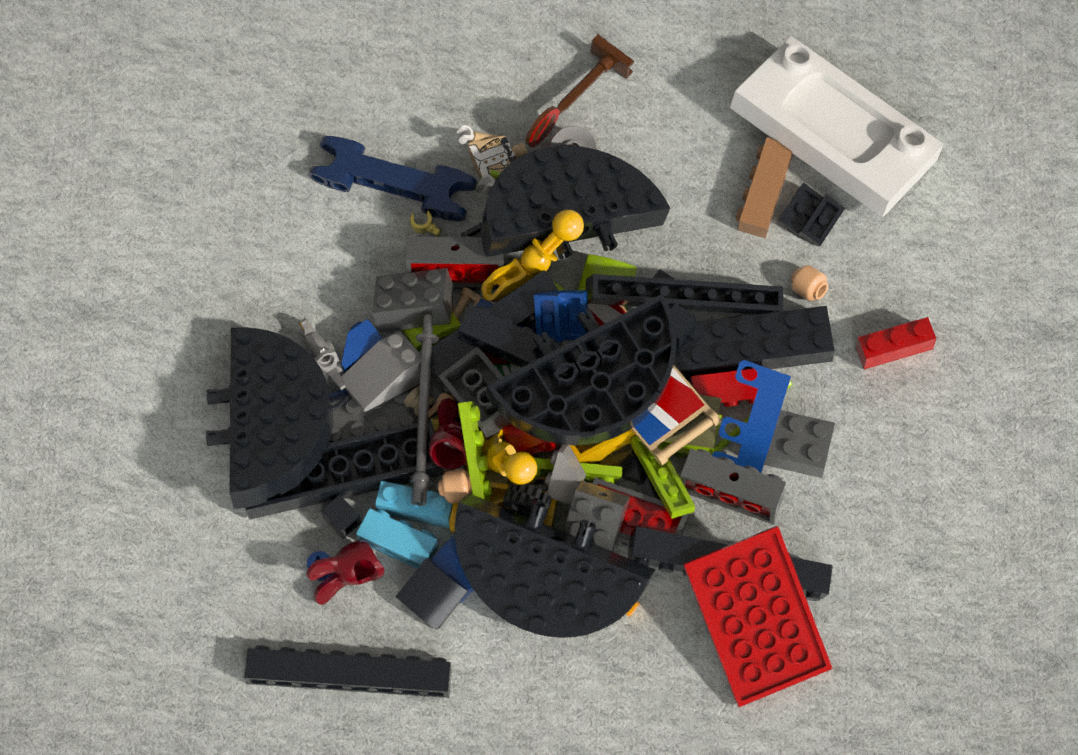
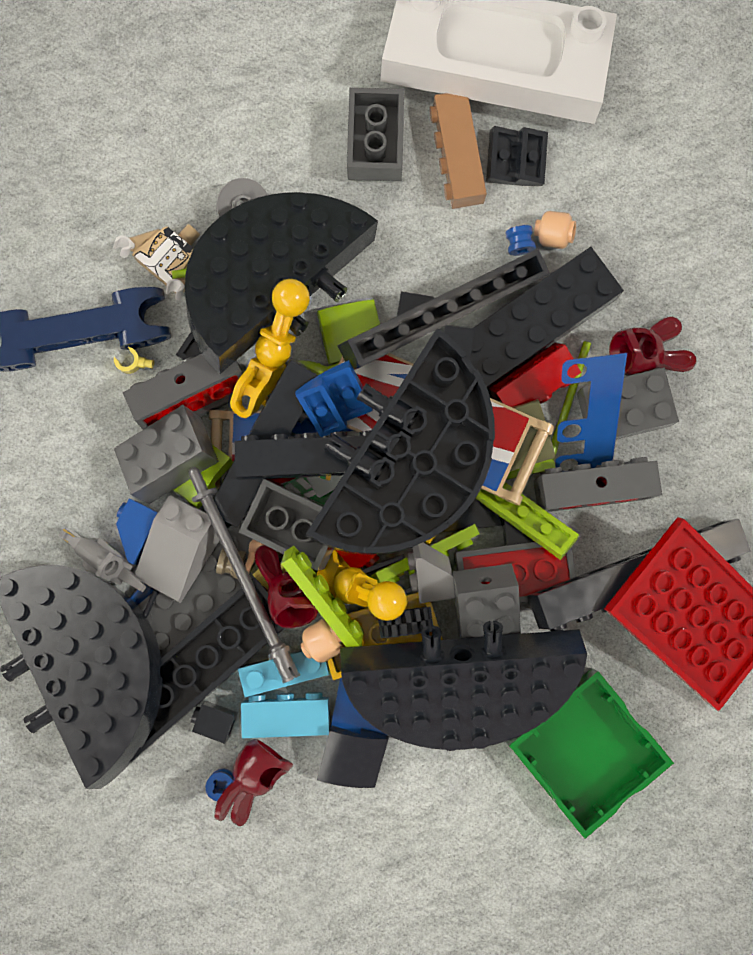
camera: 30 degrees left, 15 degrees up
(348, 672) = (310, 884): black brick -> none
(609, 57) = (228, 87): reddish brown piece -> none
(618, 683) = (591, 754): none -> green tile
(704, 145) = (375, 134): none -> dark grey brick
(777, 276) = (520, 240): none -> blue wheel
(828, 403) = (646, 348): none -> dark red piece
(895, 343) = (674, 249): red brick -> none

